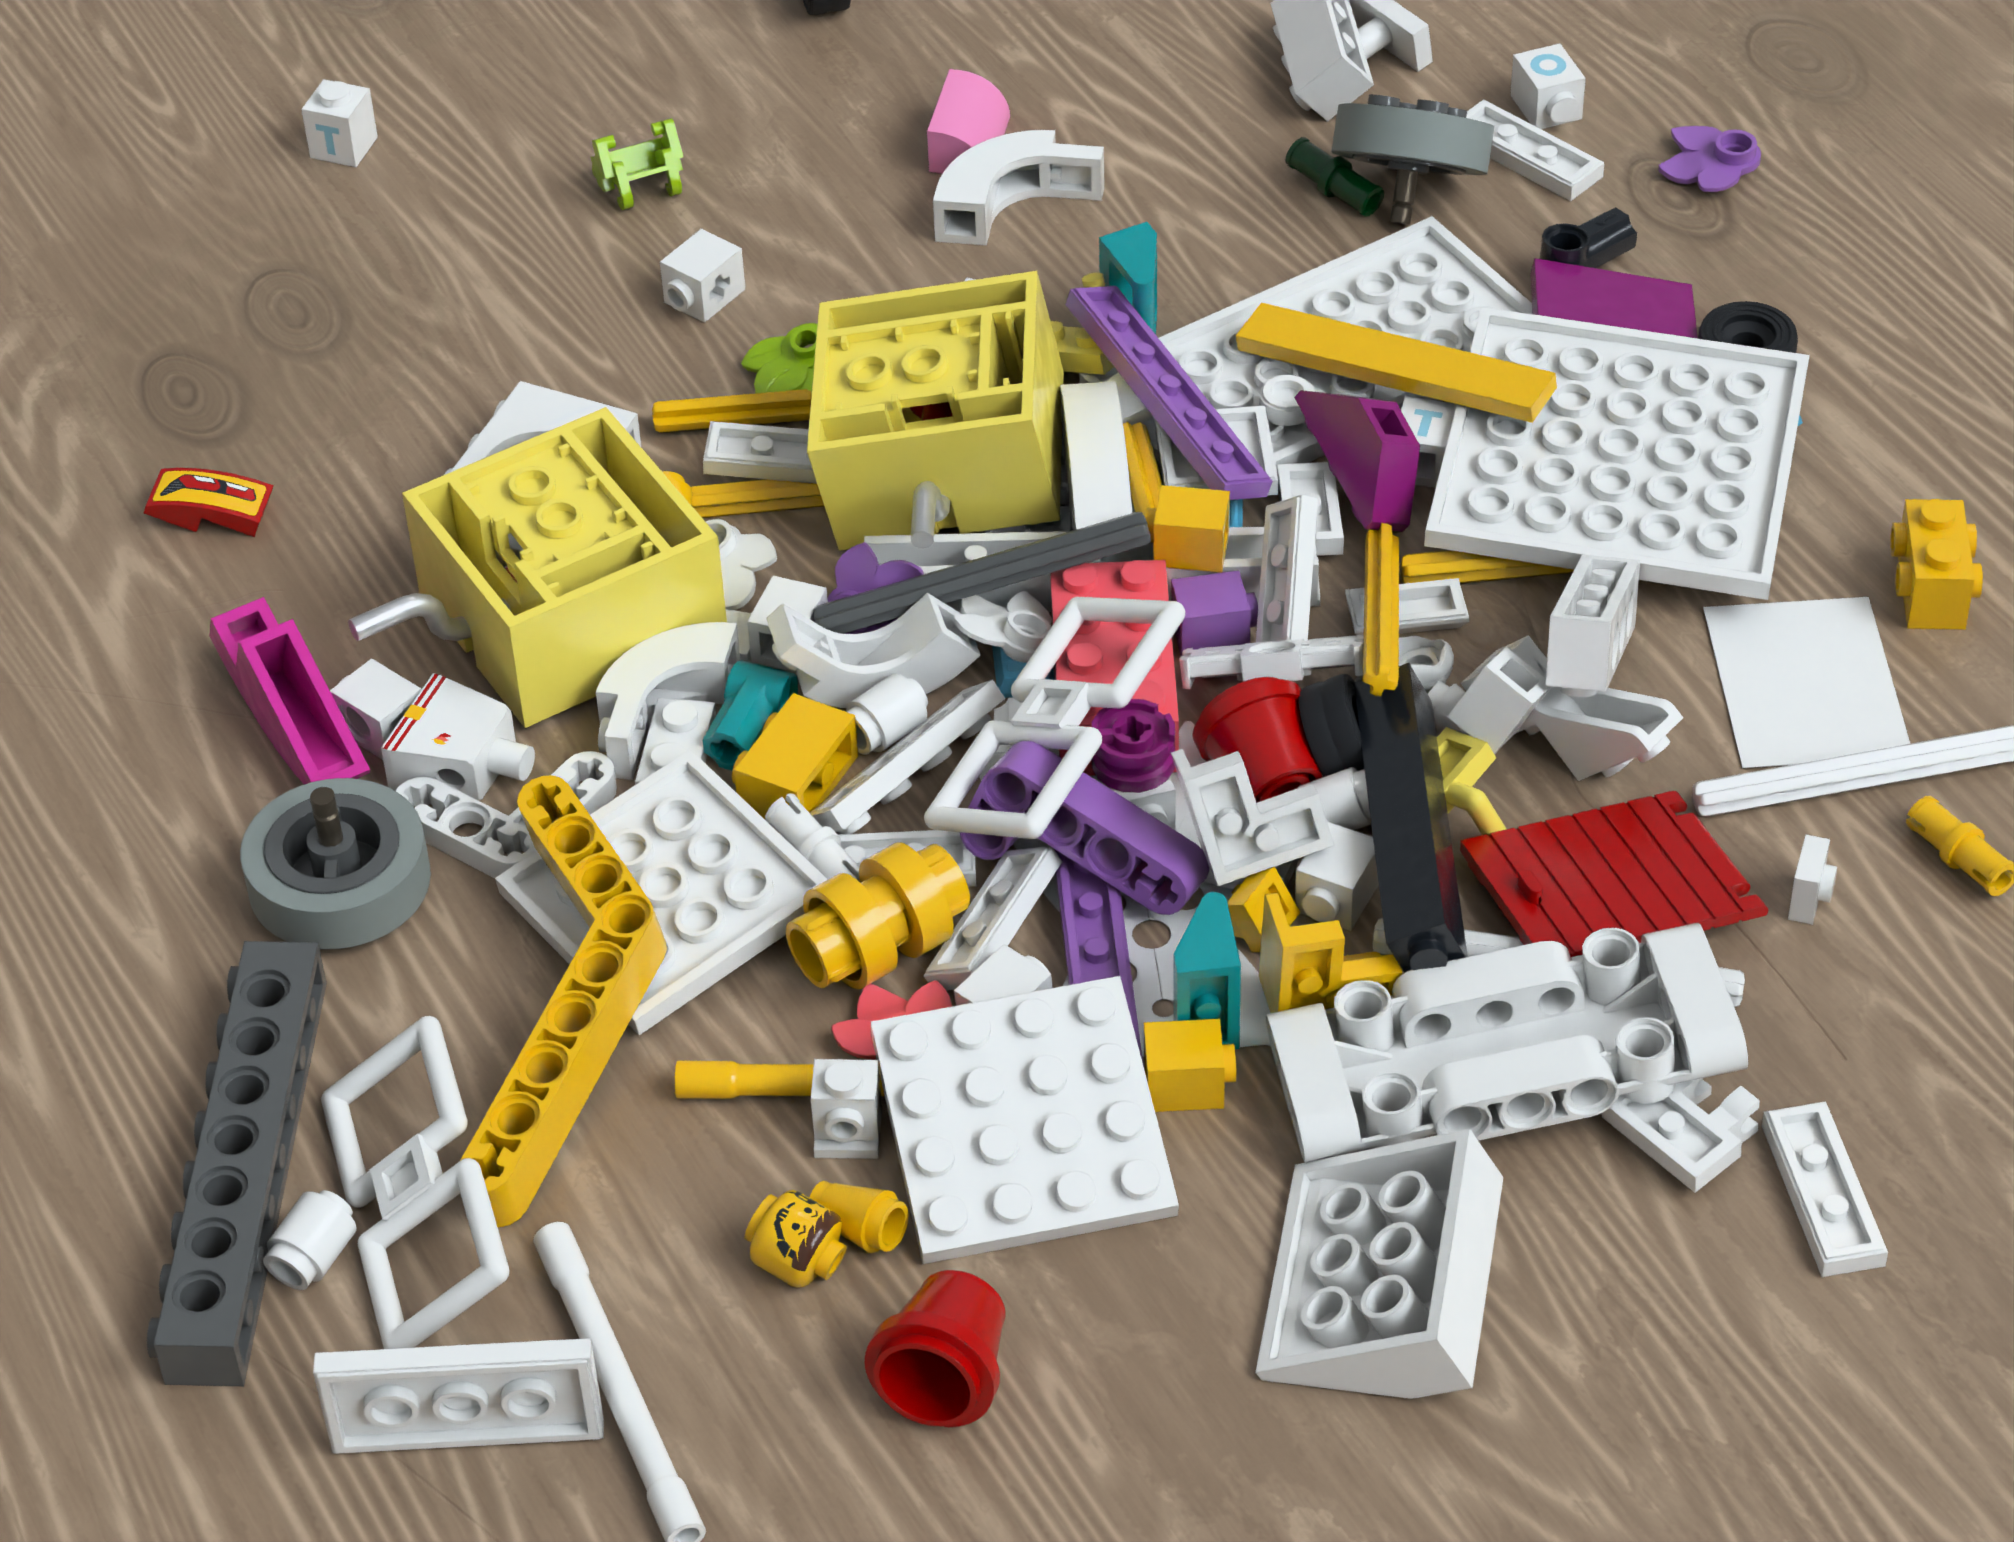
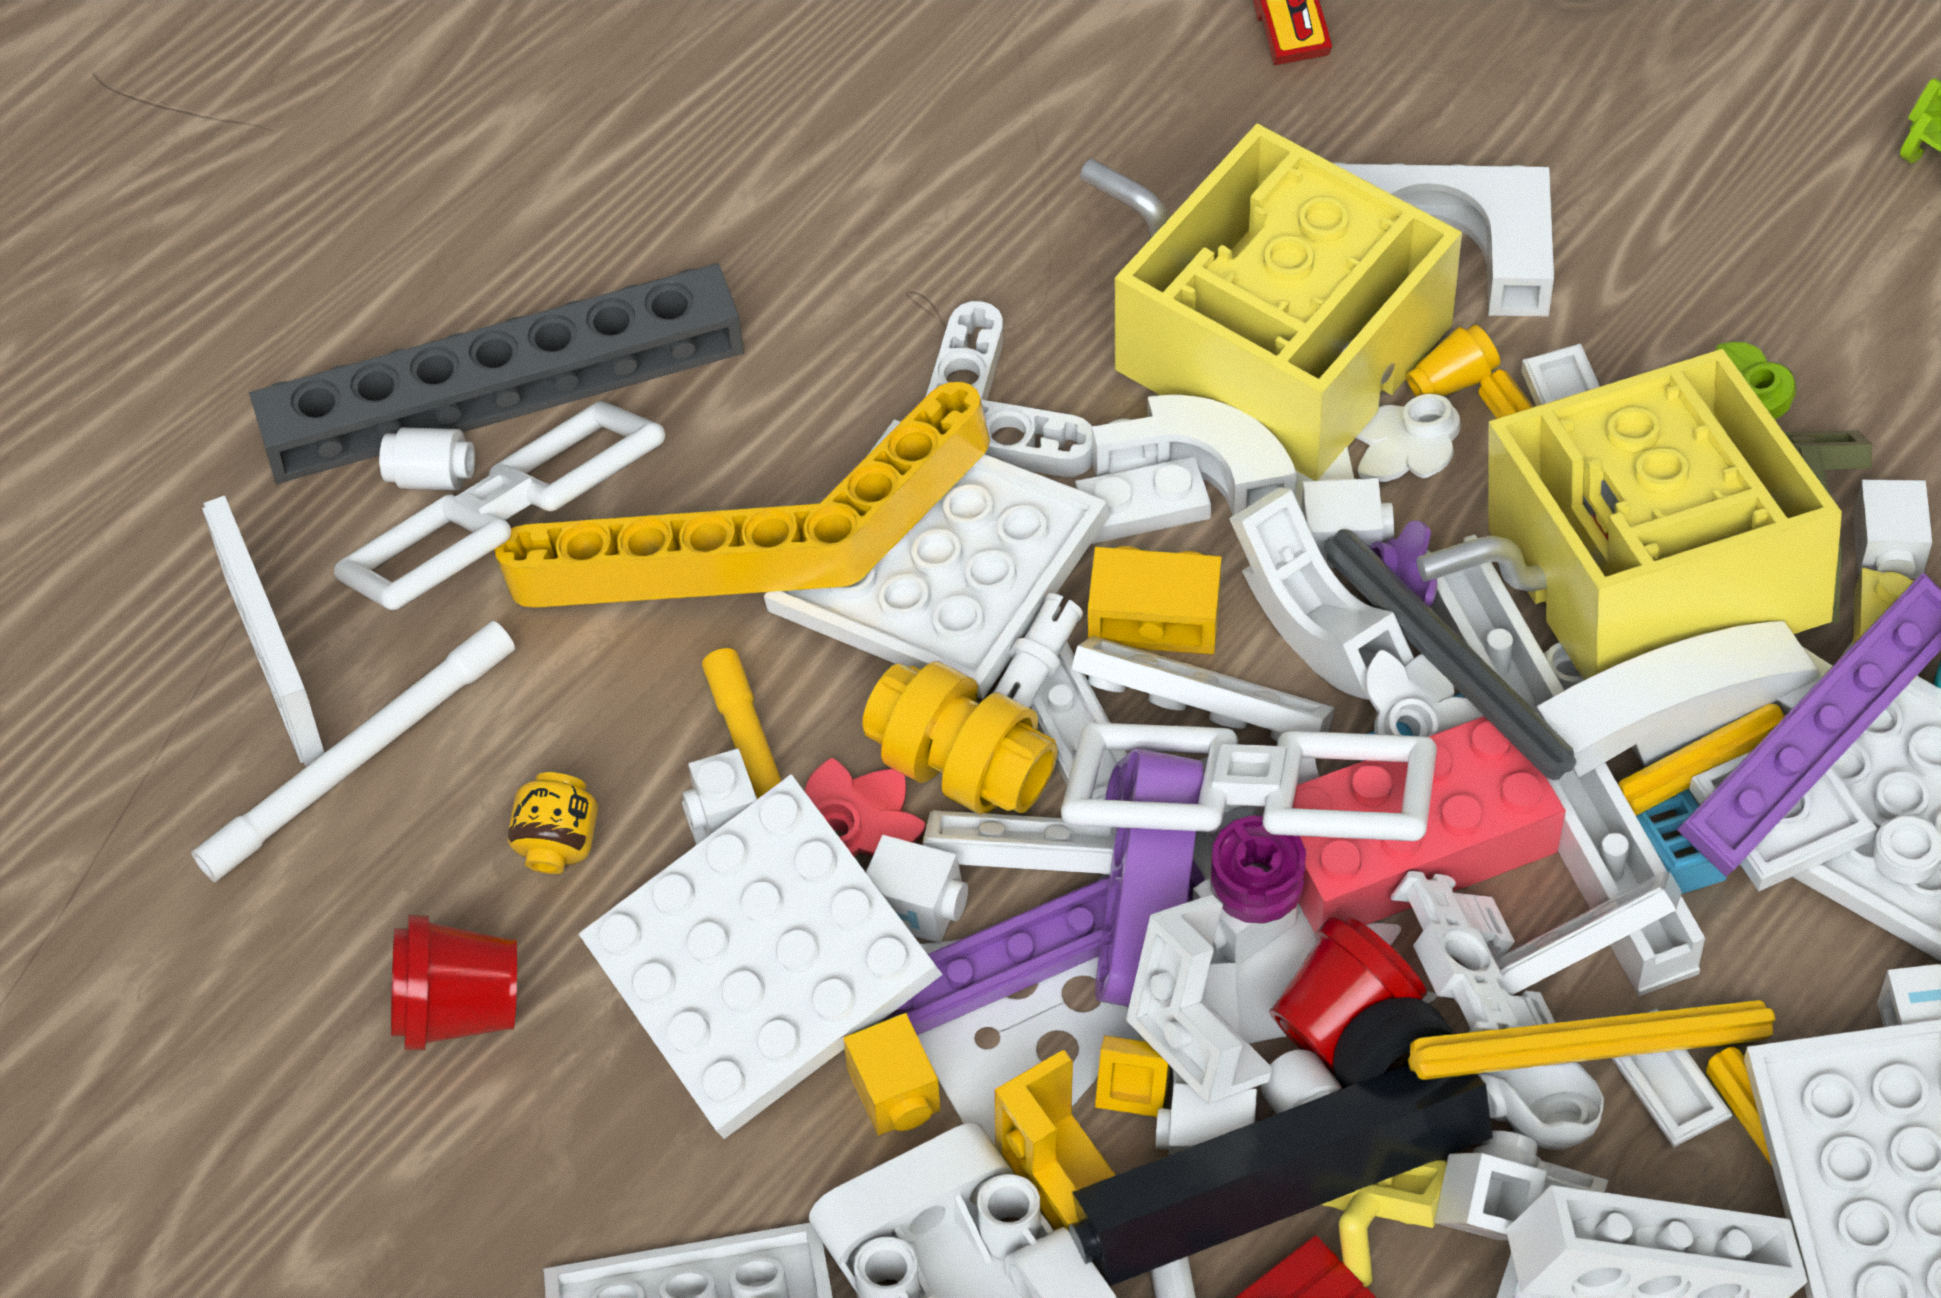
camera: 70 degrees right, 10 degrees up
(286, 693) = (1040, 170): dark pink slope -> none
(335, 863) = (855, 292): wheel -> none
(373, 703) = (1070, 246): white brick -> none
(455, 739) = (1055, 320): white torso -> none
(702, 275) = (1816, 257): white brick -> none
(741, 409) = (1618, 335): yellow axle -> none
(749, 700) = (1201, 531): teal piece -> none
(869, 1216) = (605, 865): yellow cone -> none
(888, 712) = (1256, 649): white brick -> none
(1190, 528) = (1608, 814): yellow brick -> none
(1209, 969) = (968, 1023): teal tile -> none
(1215, 610) = (1540, 885): medium lavender brick -> none
(1319, 483) = (1767, 932): white plate -> none
(1368, 453) = (1852, 949): magenta slope -> none

